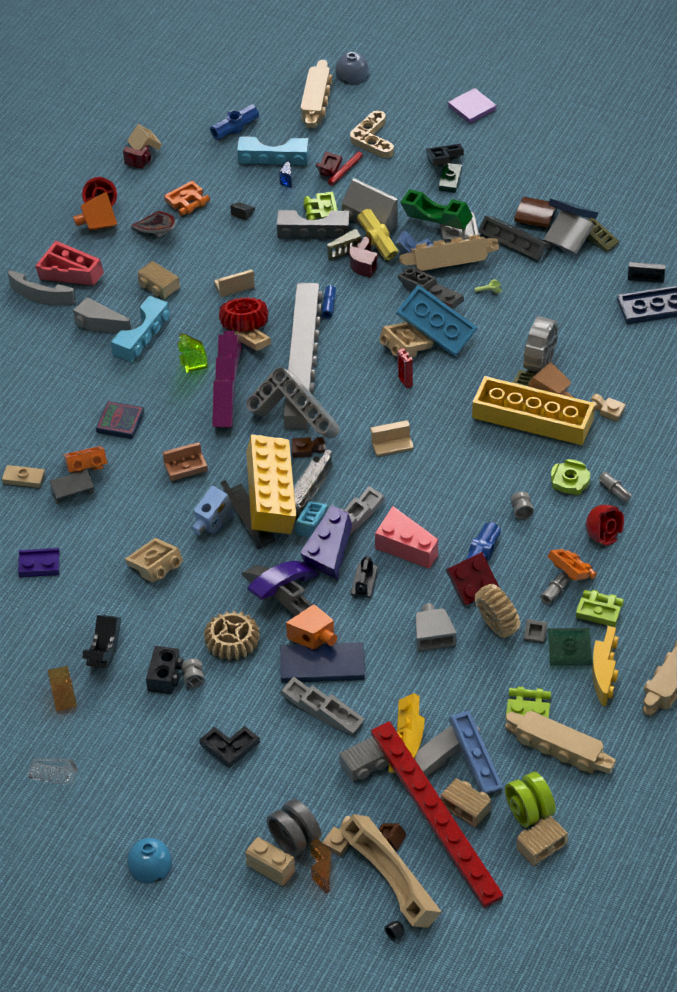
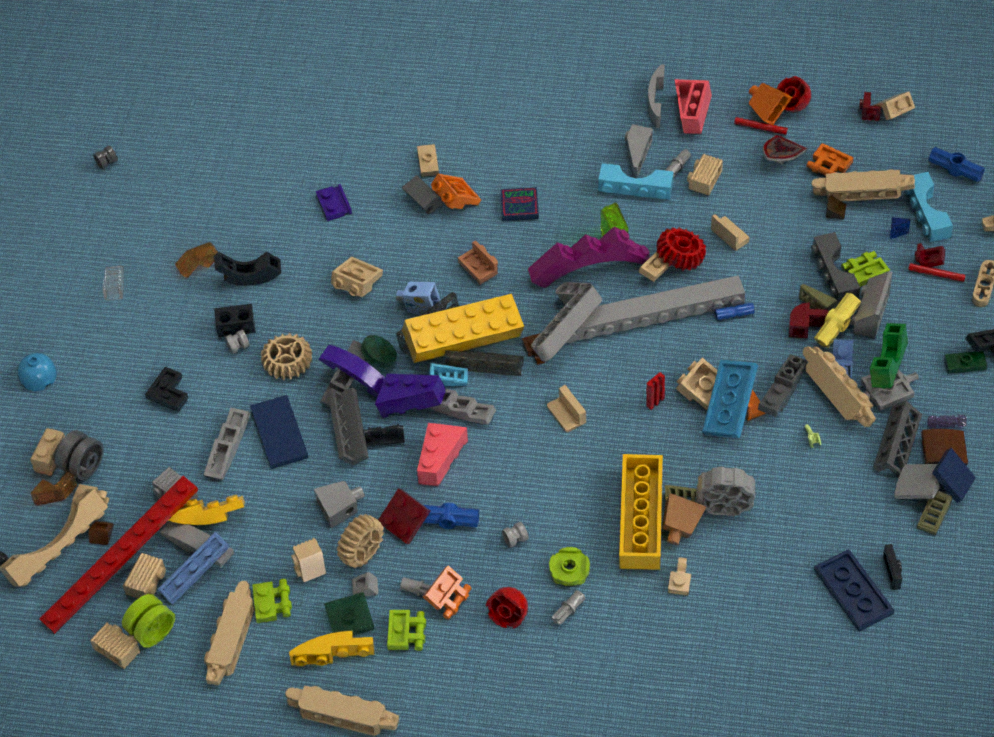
camera: 75 degrees right, 5 degrees up
(108, 238) = (759, 125): none -> red bar
(132, 297) = (678, 162): none -> light grey axle
(231, 181) = (863, 185): none -> tan hinge
(262, 558) = (378, 351): none -> clear green tile
(311, 628) = (307, 410): orange torso -> none
(347, 597) = (348, 425): none -> dark grey fence
(502, 657) = (308, 560): none -> tan brick
(507, 204) = (947, 421): none -> clear purple axle

